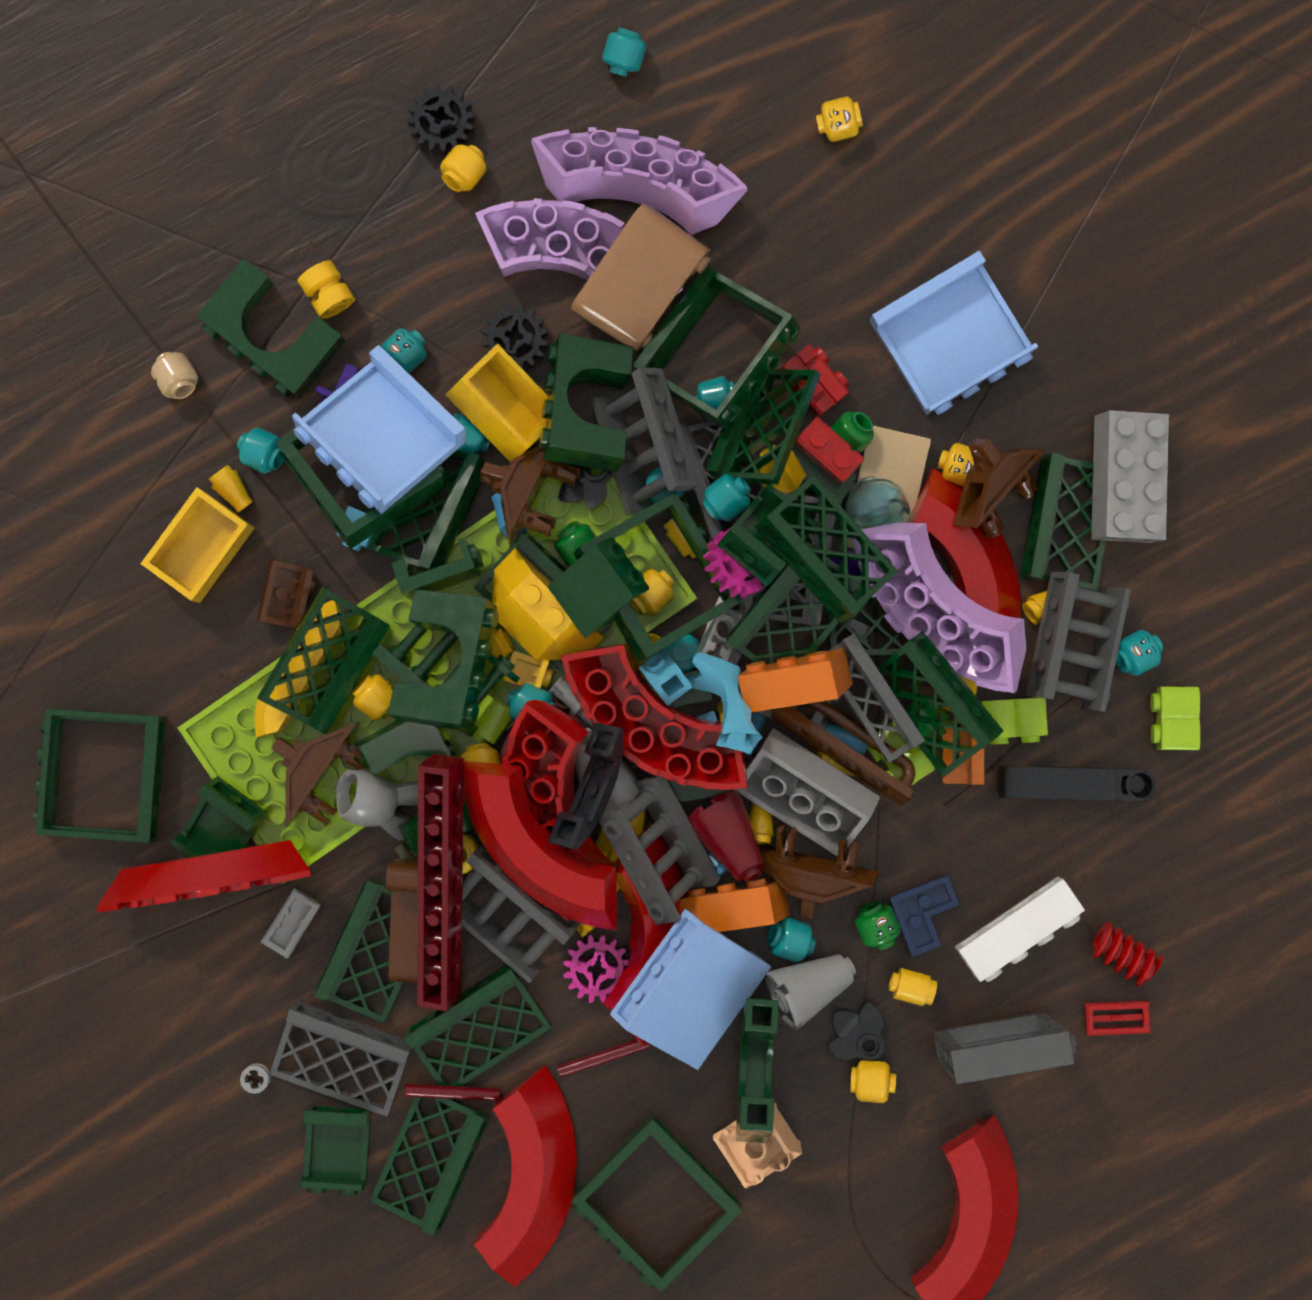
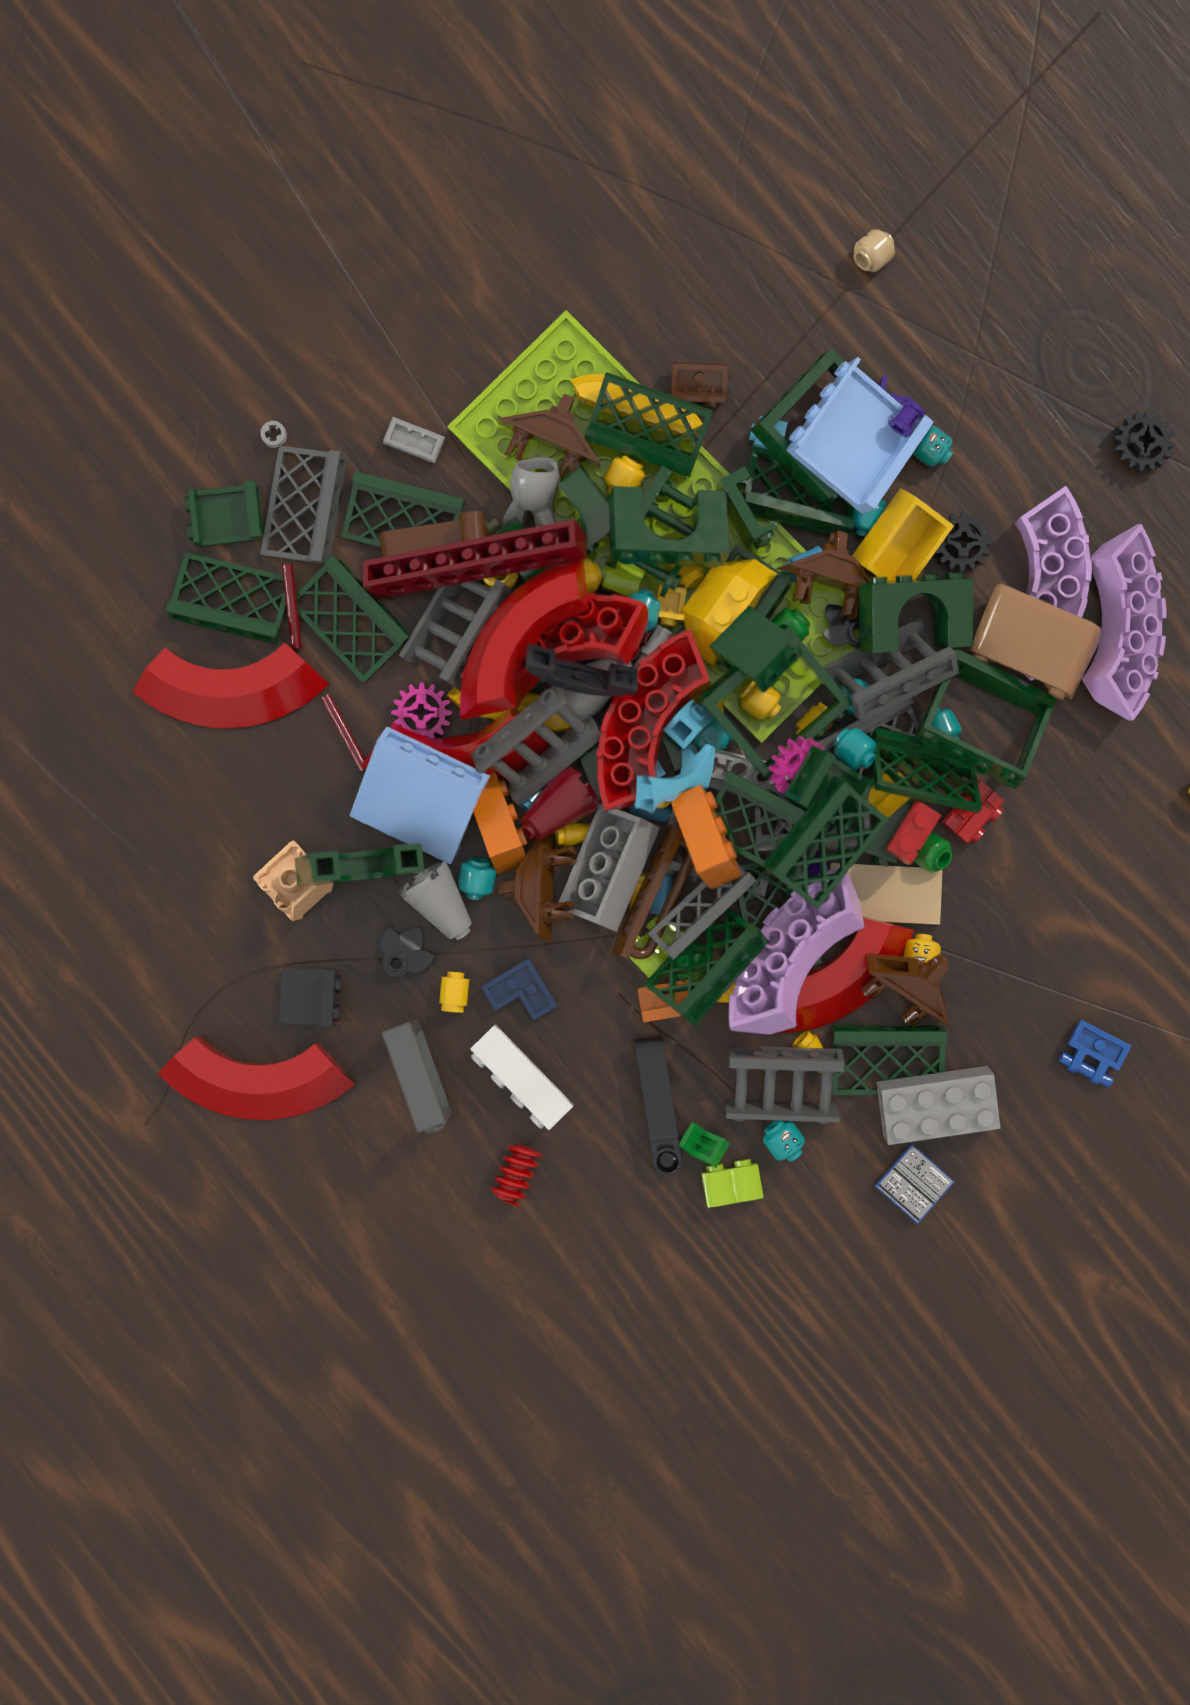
camera: 70 degrees right, 0 degrees up
(47, 784) = (521, 295): dark green window -> none
(197, 545) = (728, 298): yellow piece -> none
(204, 876) = (443, 356): red brick -> none
(220, 821) = (485, 362): dark green panel -> none
(229, 314) = (934, 288): dark green arch -> none
(230, 488) = (784, 317): yellow cone -> none
(259, 450) = (821, 336): teal head -> none
(328, 293) = (977, 365): yellow wheel -> none
(369, 373) = (906, 418): none -> dark purple bush
(463, 167) = (1104, 469): yellow head -> none
(692, 1166) = (265, 825): dark green window -> none
(872, 1081) = (365, 971): yellow head -> none
(876, 503) = (874, 883): clear light blue cylinder -> none
(877, 925) = (502, 951): green head -> none
(890, 1148) = (310, 996): none -> black bracket
(952, 335) = (1035, 927): light blue panel -> none
(1019, 719) = (706, 1042): lime brick -> none
(1089, 1018) = (453, 1154): red tile -> none
(1093, 290) = (1098, 1045): none -> blue plate
(1129, 742) = (703, 1145): none -> green bracket
(1210, 518) = (914, 1183): none -> light grey tile

